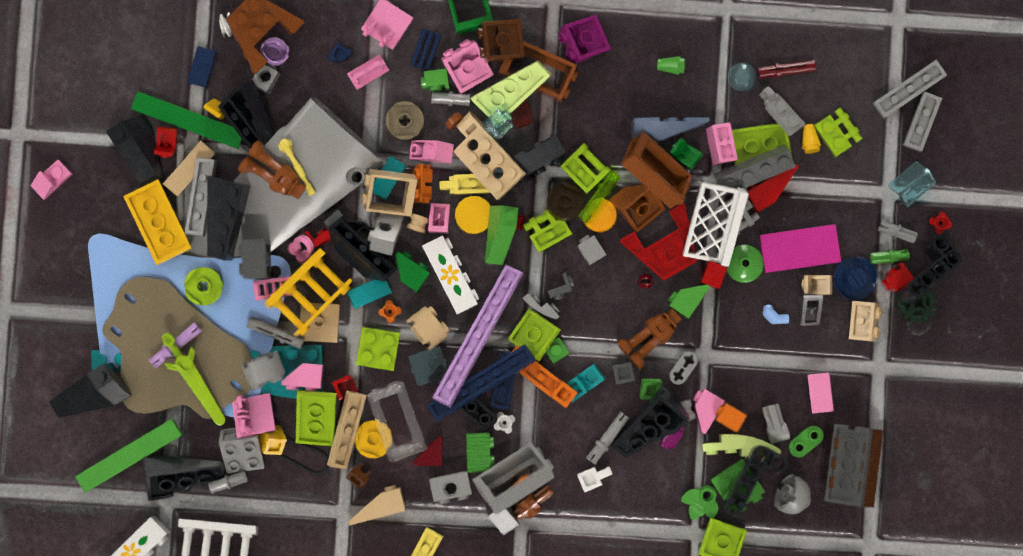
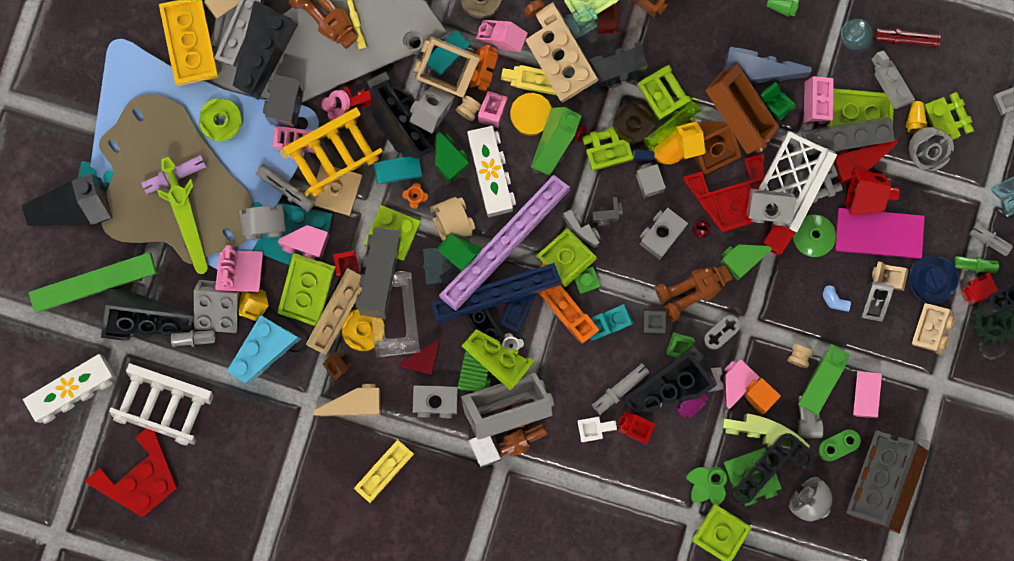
camera: 15 degrees right, 5 degrees down
(290, 476) = (261, 349): none -> medium azure wedge
(376, 390) = (379, 273): none -> dark grey brick
(440, 353) = (458, 250): none -> green slope
(497, 440) = (500, 361): none -> lime wing
(579, 230) = (643, 156): none -> dark blue tile
(618, 207) = (690, 140): none -> yellow panel
(622, 287) = (657, 245): none -> light grey brick
(628, 468) = (635, 427): none -> red bracket
(692, 245) = (761, 198): none -> light grey brick
(755, 372) = (800, 356): none -> tan wheel
(780, 389) = (824, 379): none -> bright green slope
(783, 216) = (869, 193): none -> red torso
(828, 165) = (930, 148): none -> light grey cylinder

